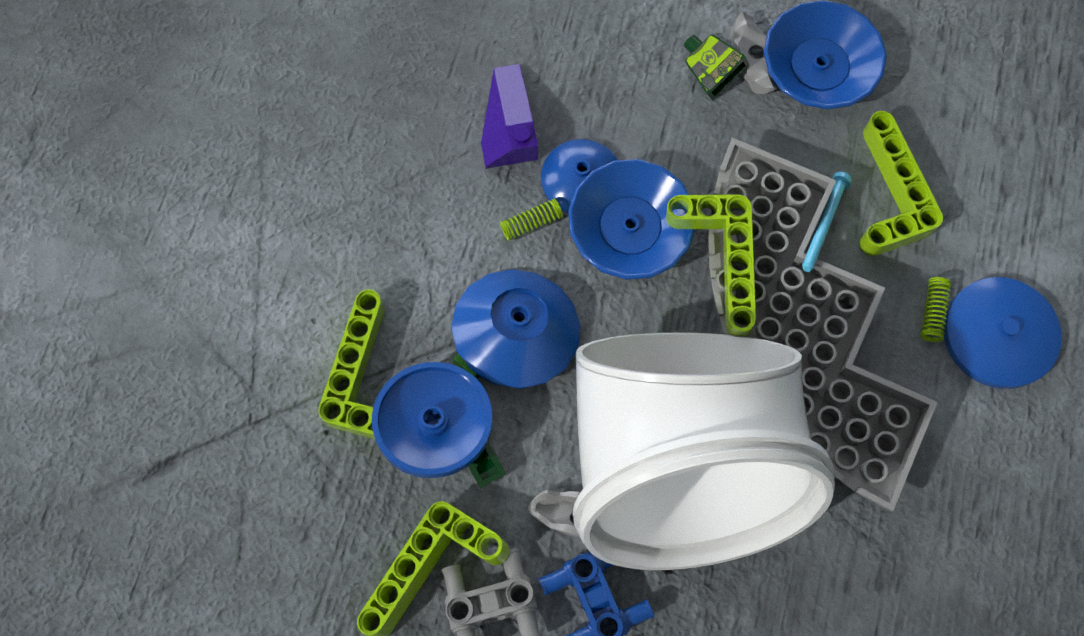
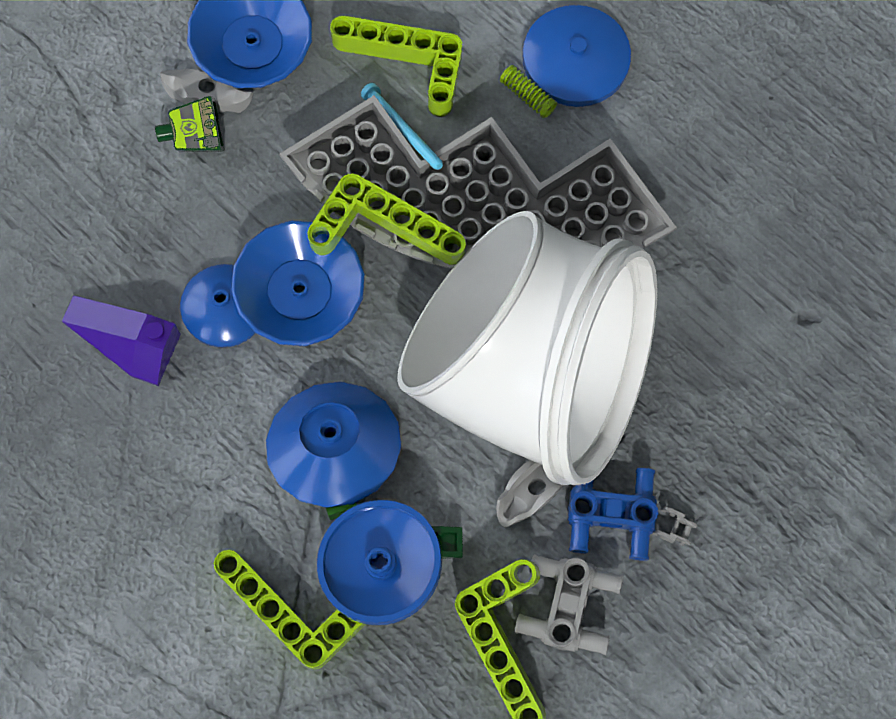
camera: 65 degrees left, 0 degrees up
(556, 208) = (234, 398): lime piece -> none

